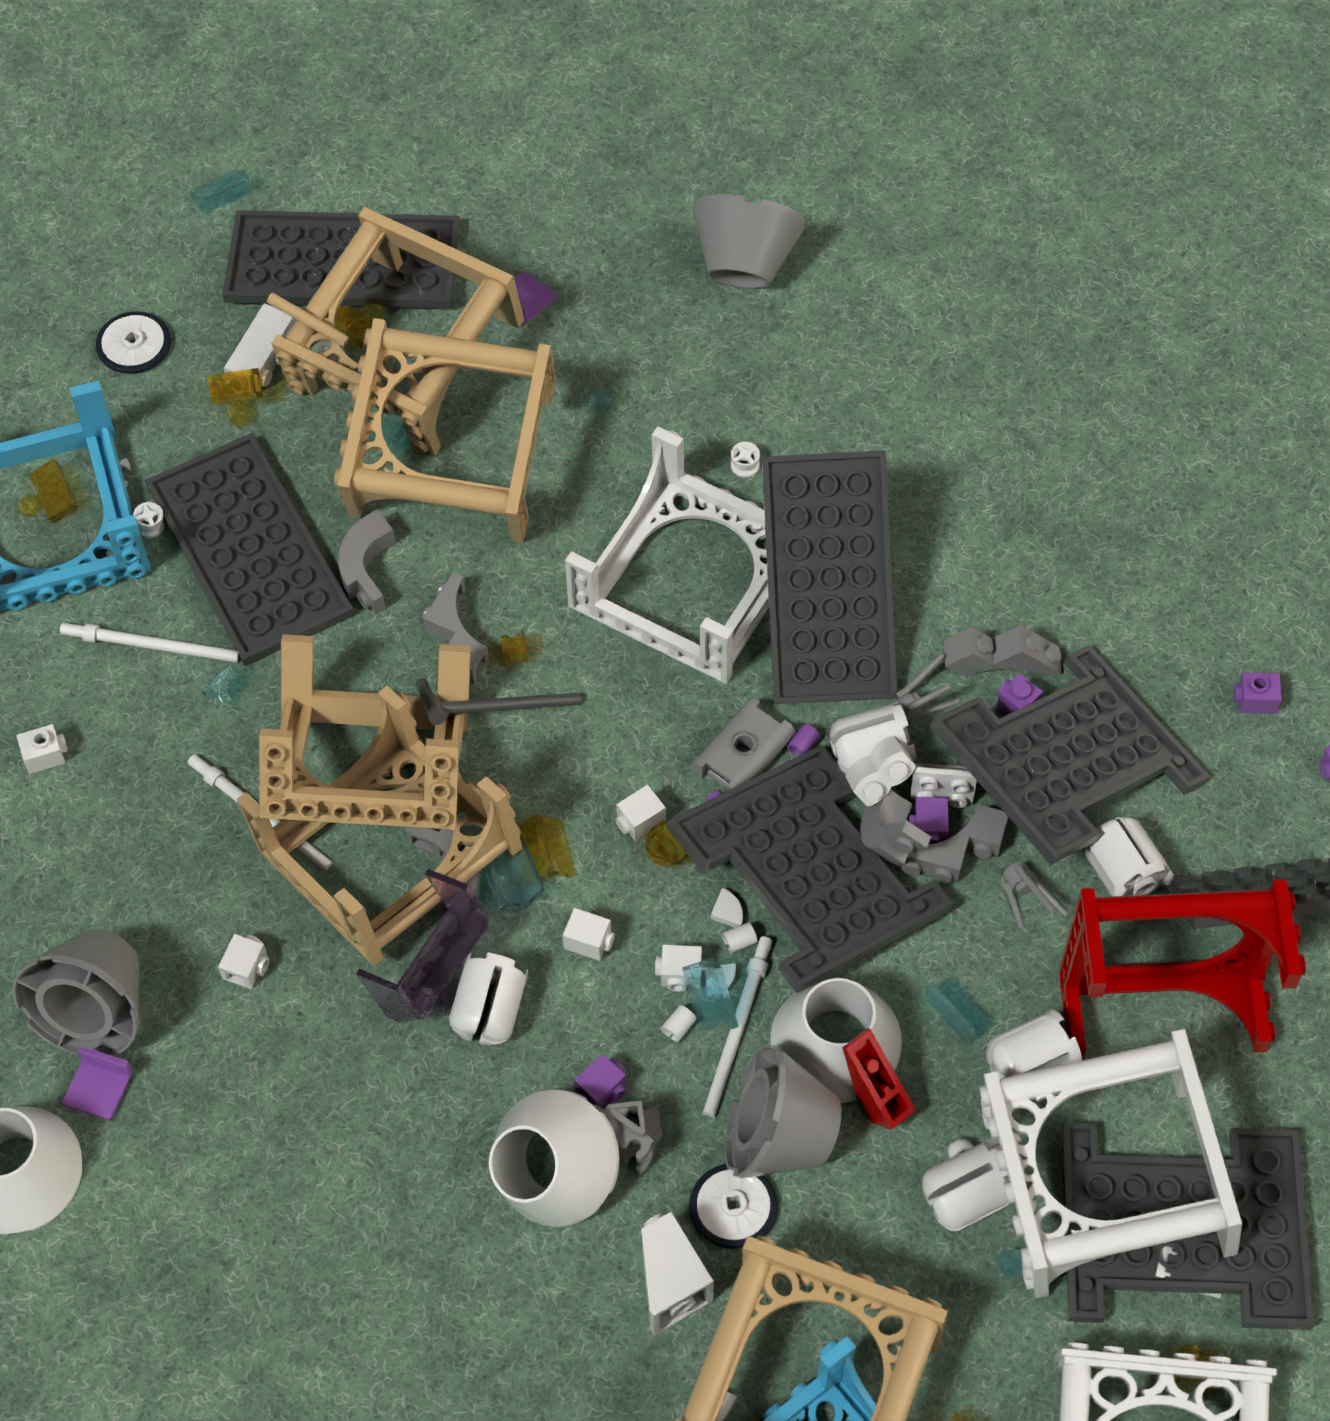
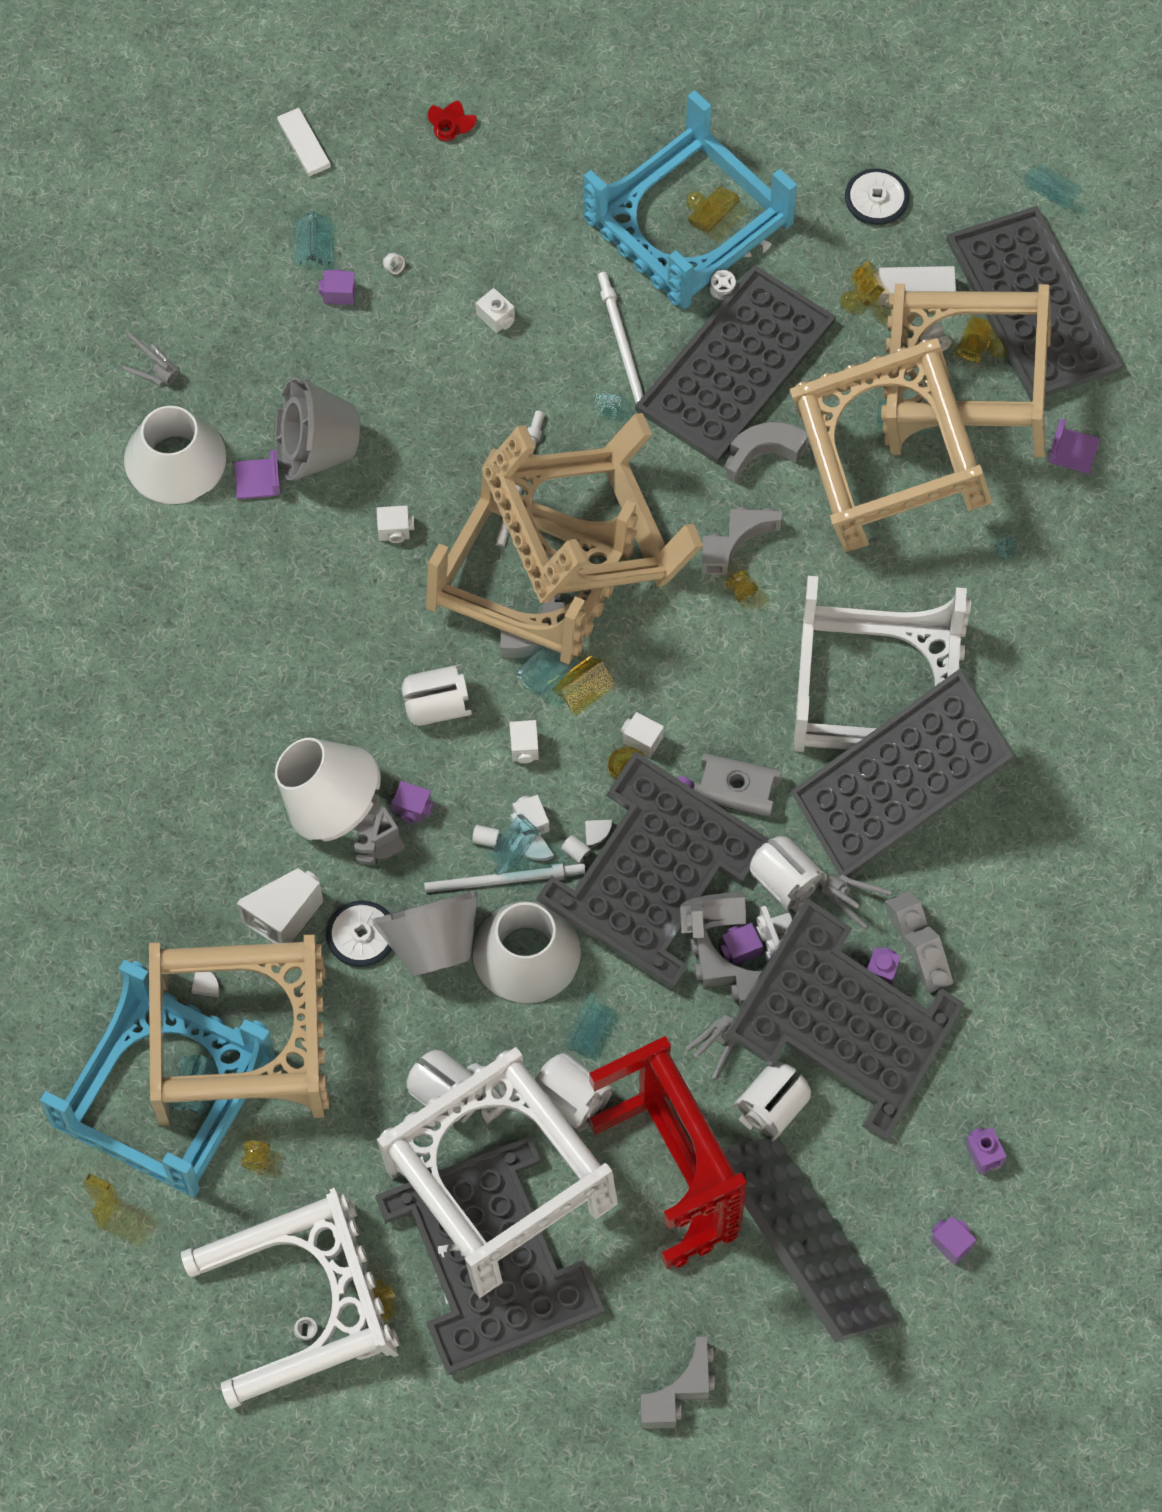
camera: 65 degrees right, 5 degrees up
(307, 319) = (927, 303): tan bar -> none
(438, 958) = (443, 645): clear purple windscreen -> none
(439, 710) = (651, 553): dark grey bar -> none
(747, 452) = (1005, 671): white wheel -> none
(803, 740) = (768, 825): medium lavender hinge -> none
(876, 1082) = (491, 984): red slope -> none
(885, 767) = (753, 884): white brick -> none

